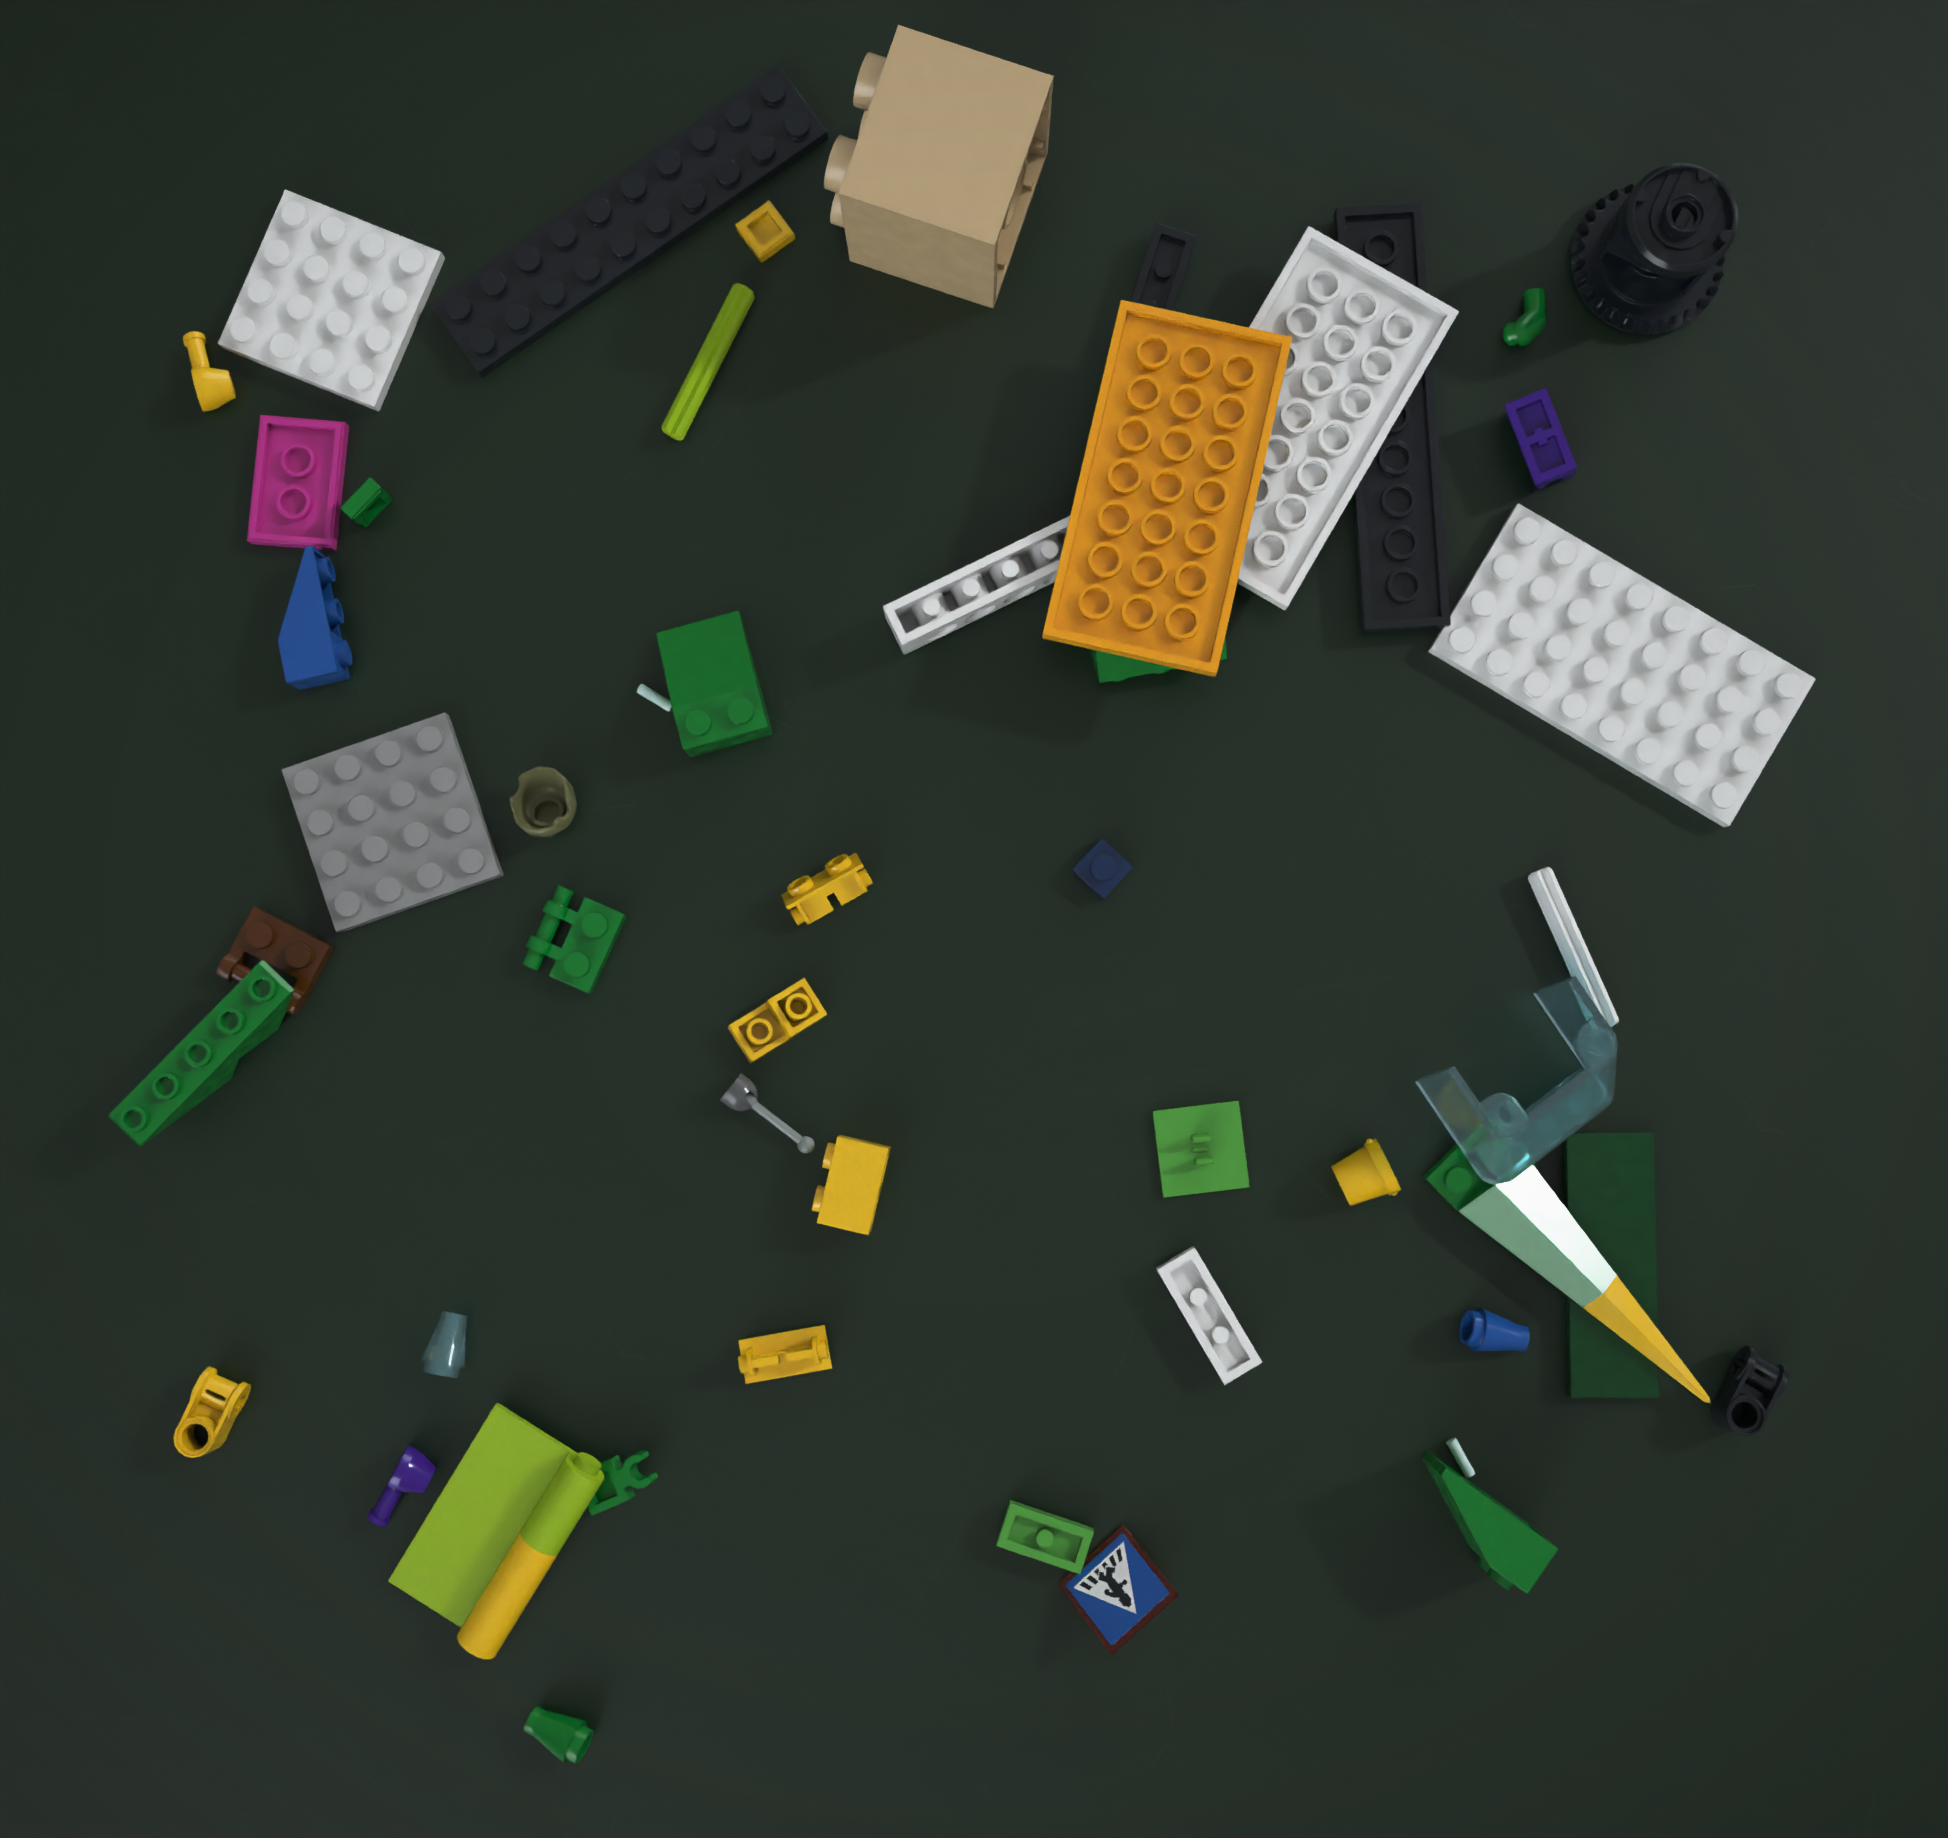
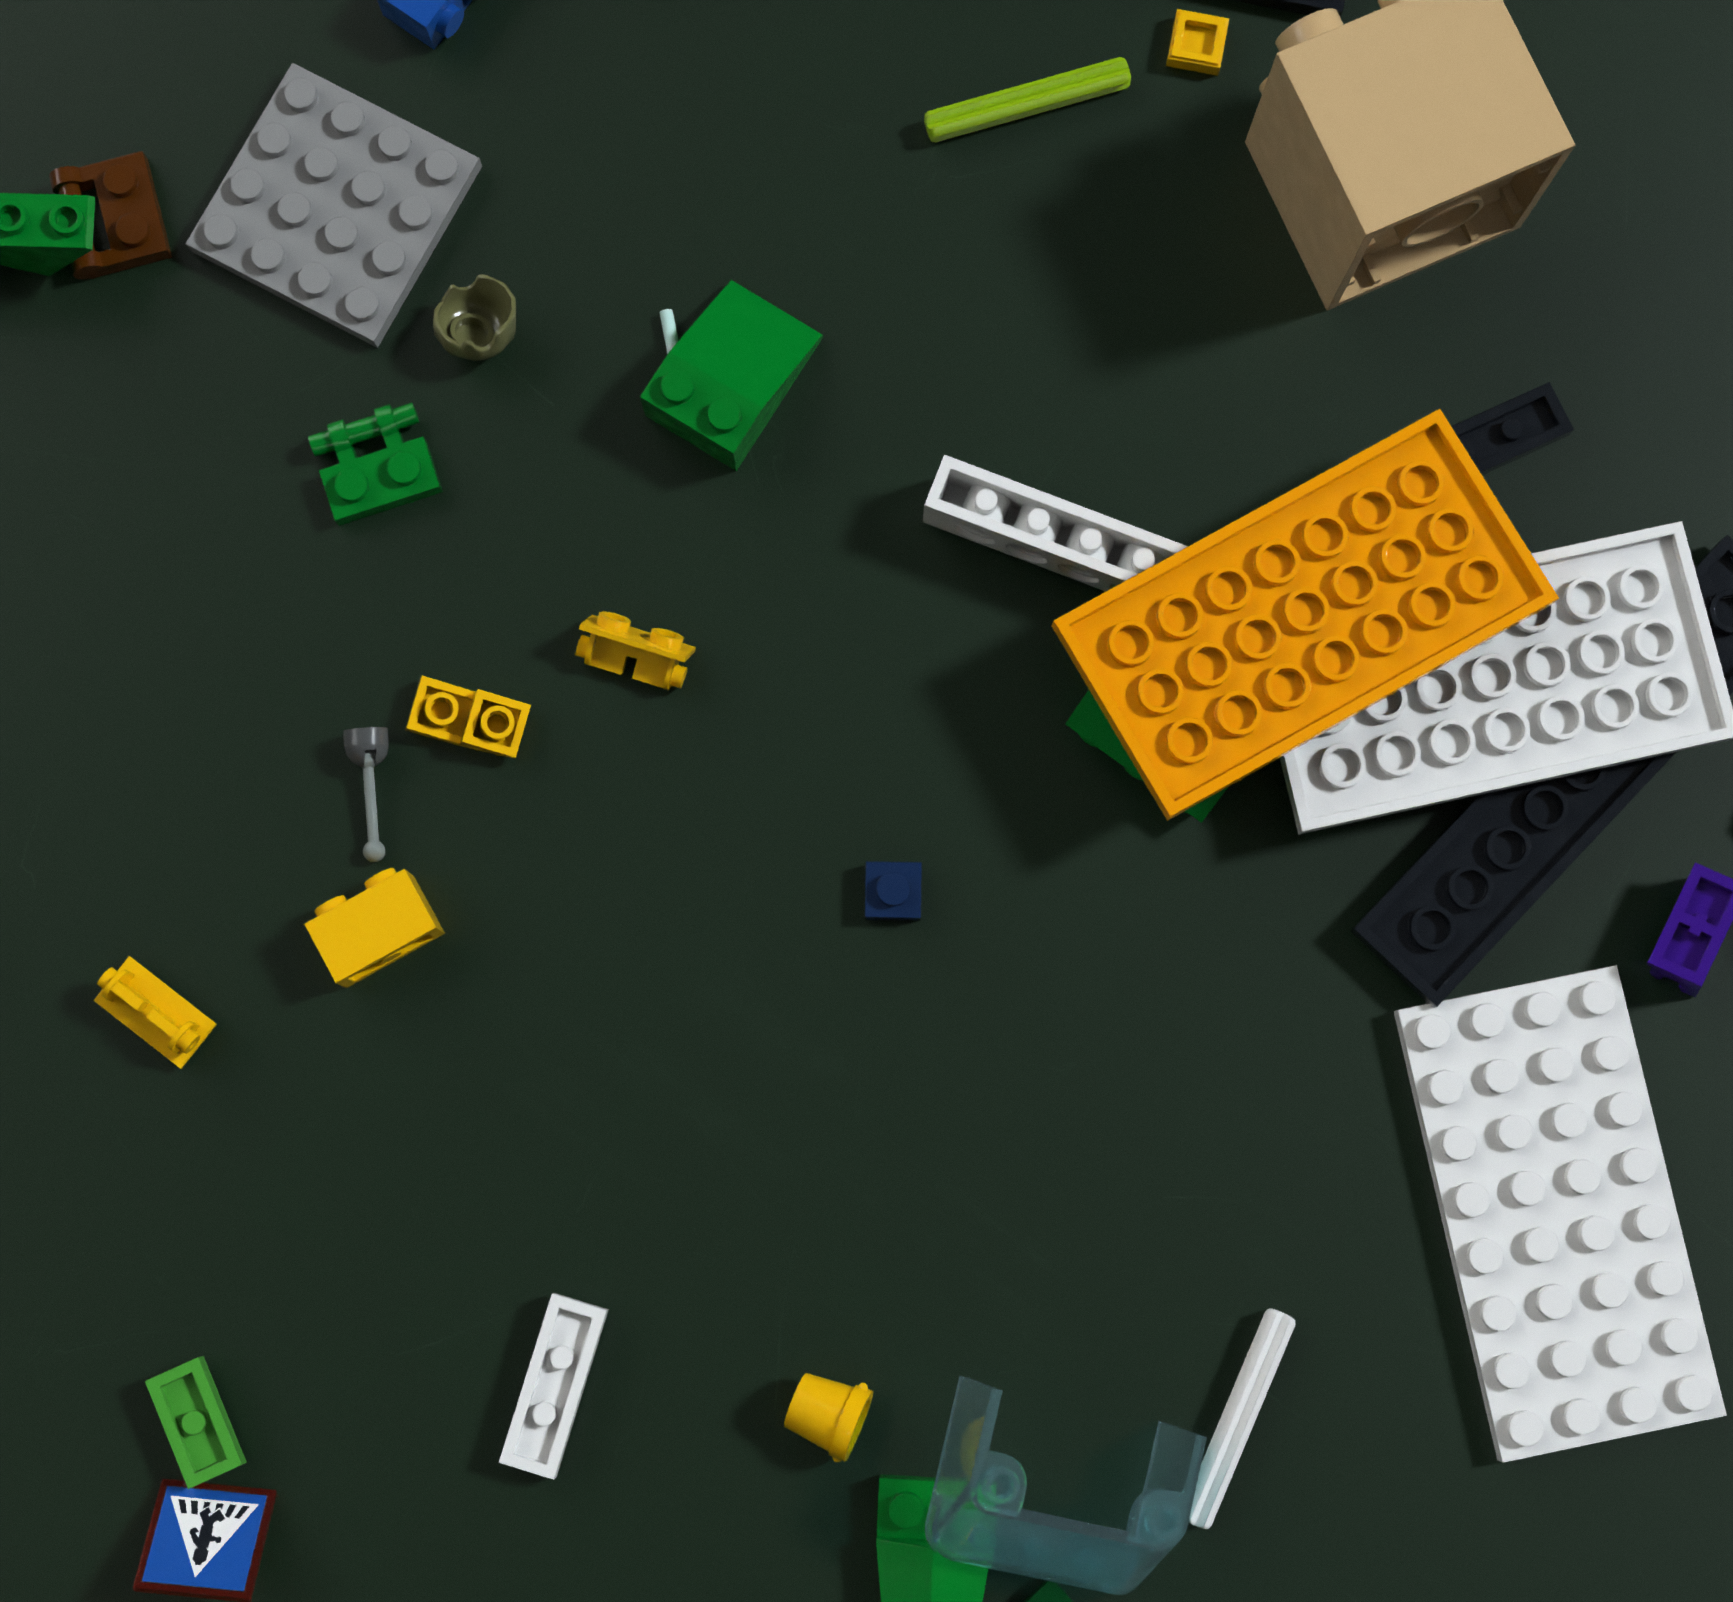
camera: 45 degrees right, 5 degrees down
(1200, 1149) = (710, 1232): bright green piece -> none

